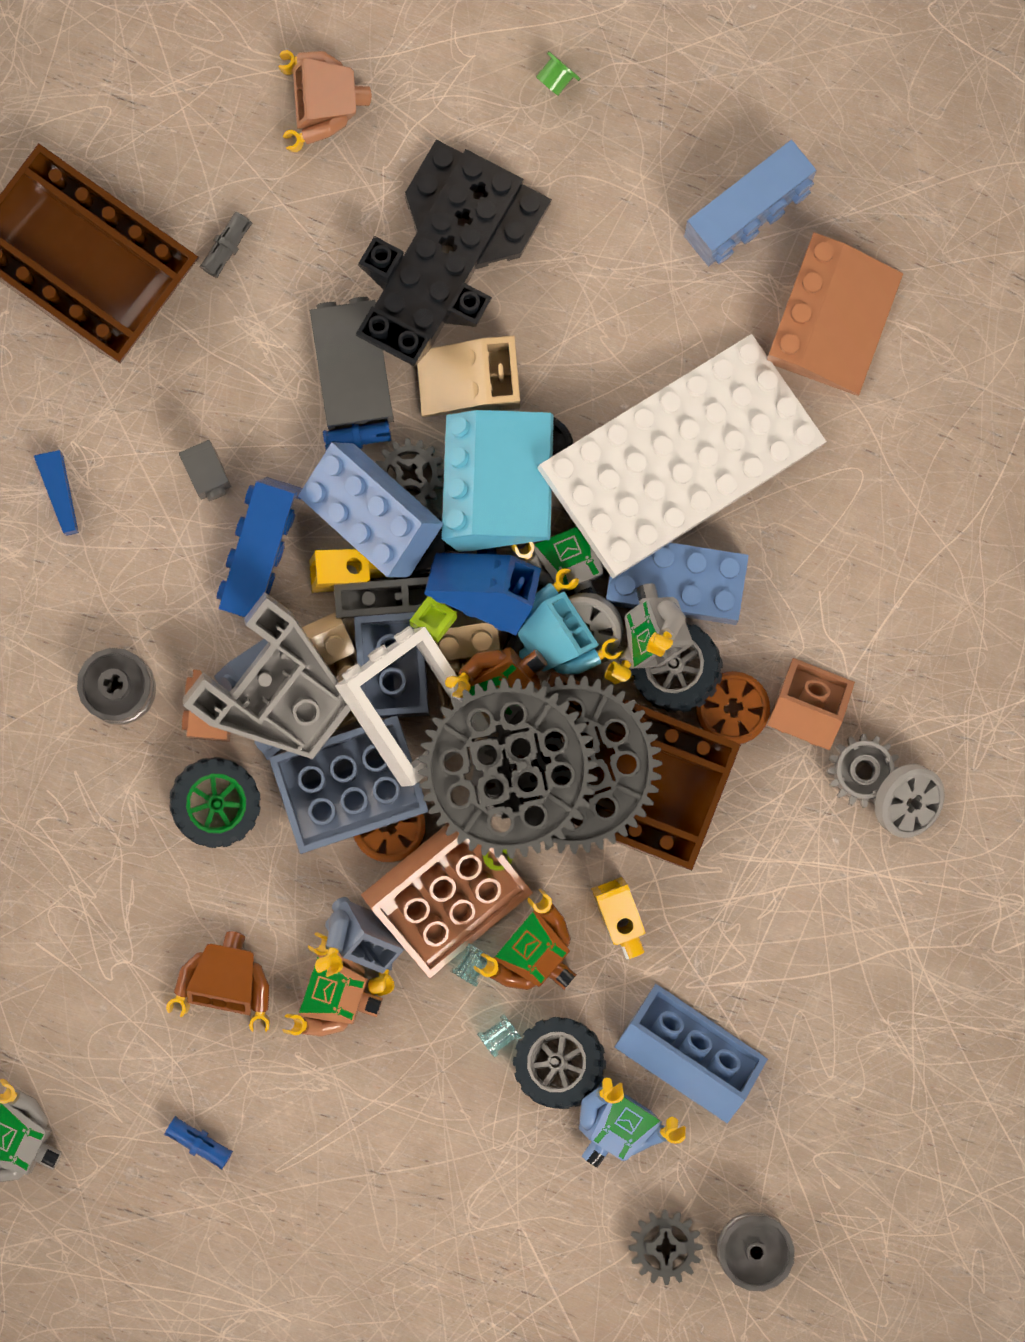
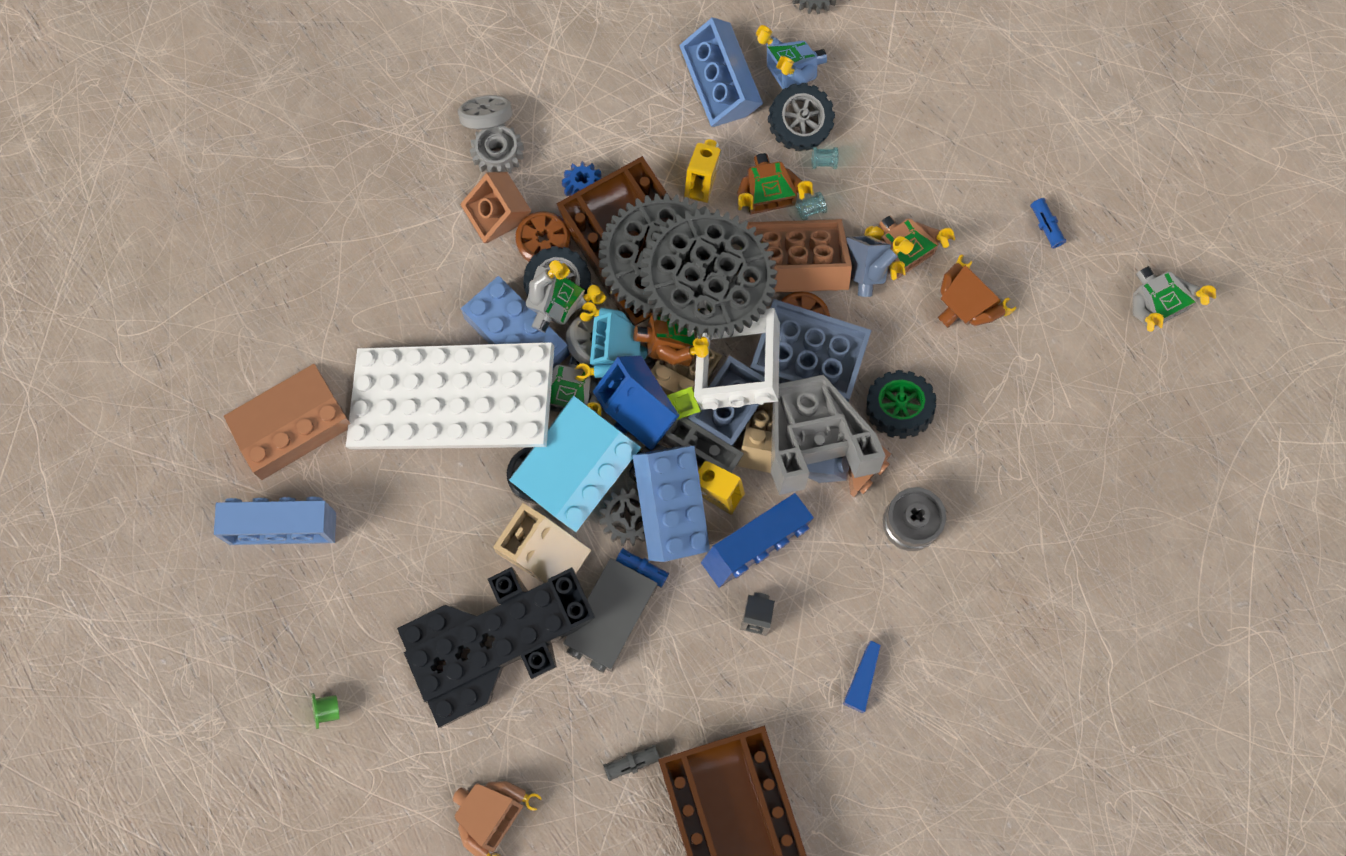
camera: 150 degrees left, 10 degrees down
(734, 792) = (579, 178): none -> blue gear

